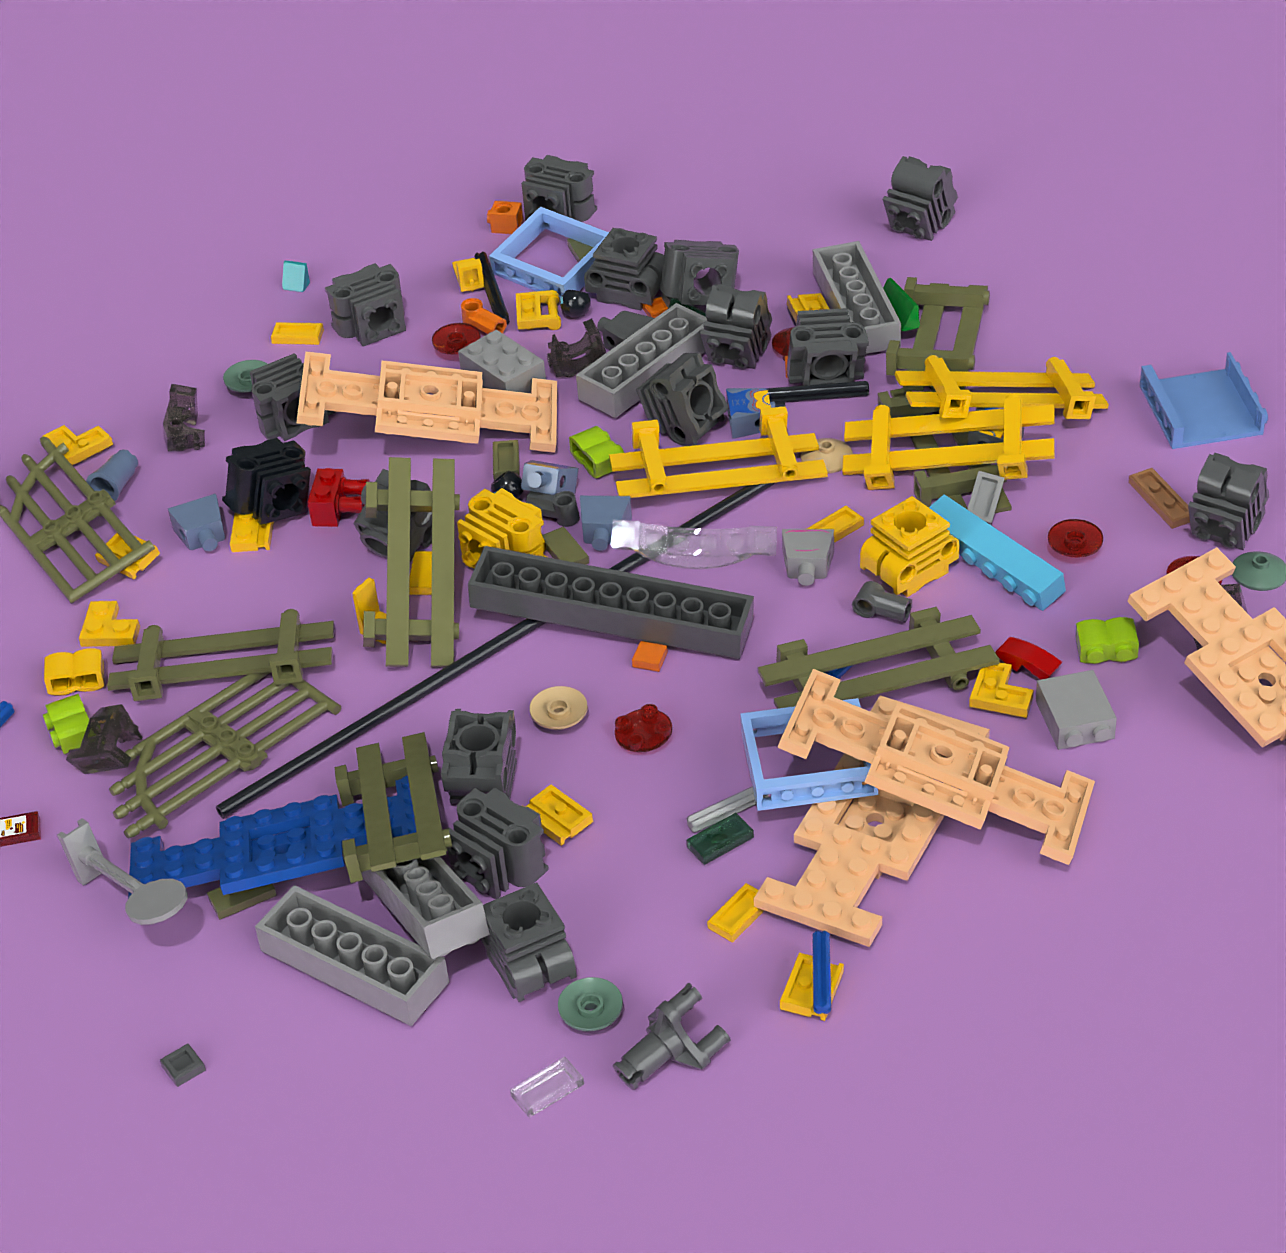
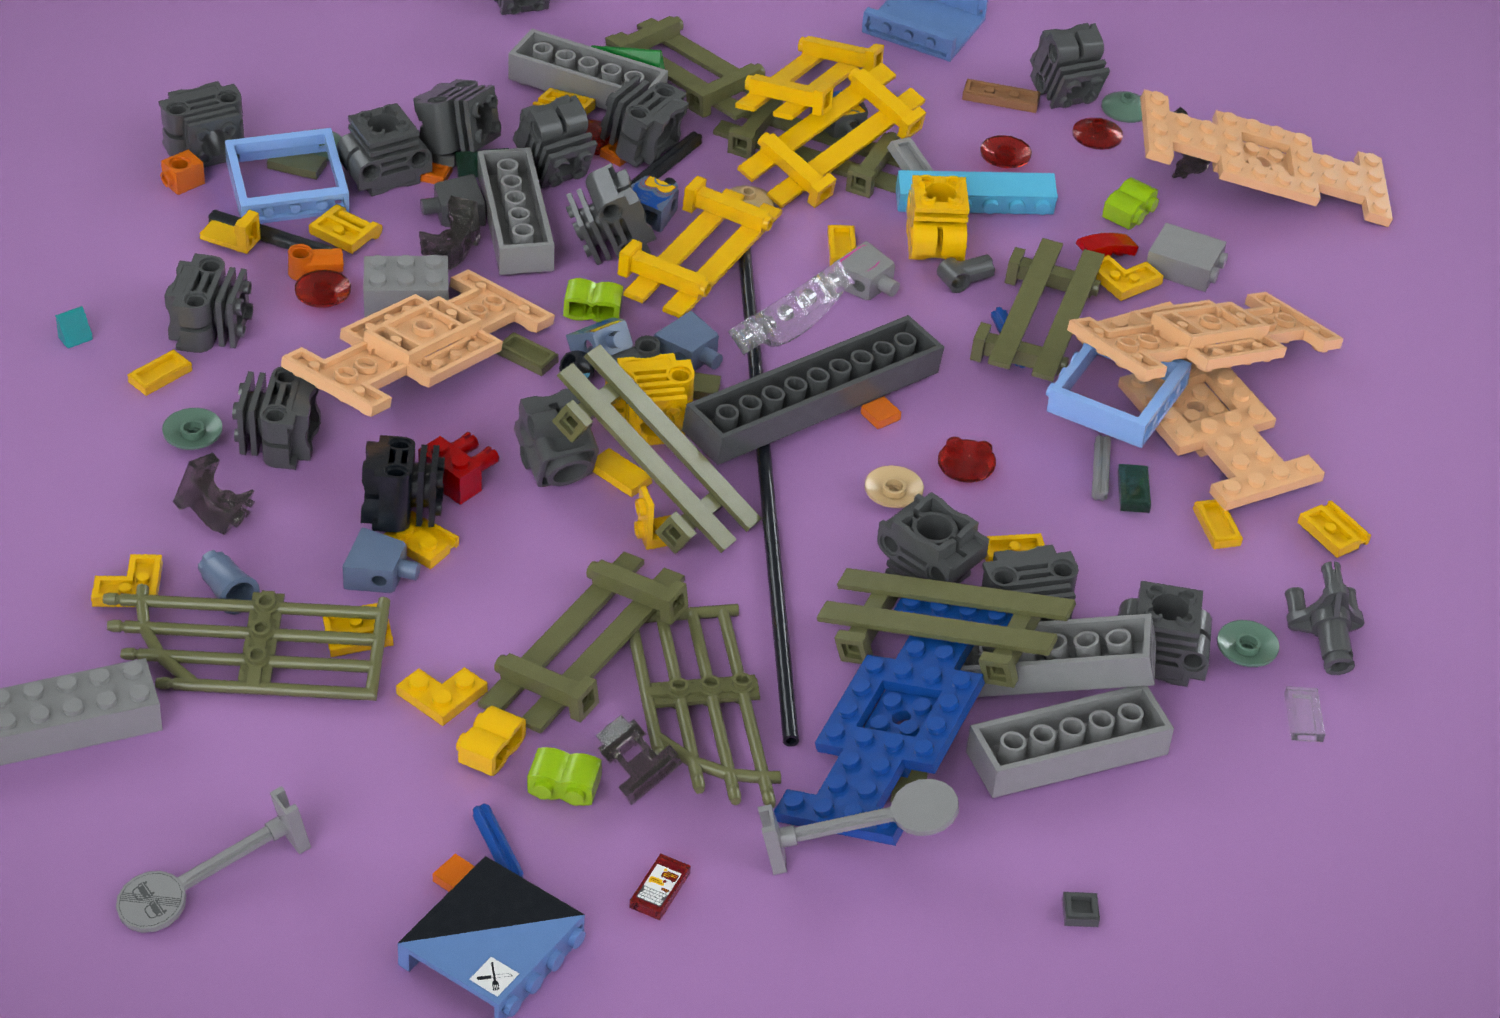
camera: 60 degrees left, 0 degrees up
(575, 303) = (373, 204): black piece -> none
(821, 972) = (1336, 511): blue axle -> none

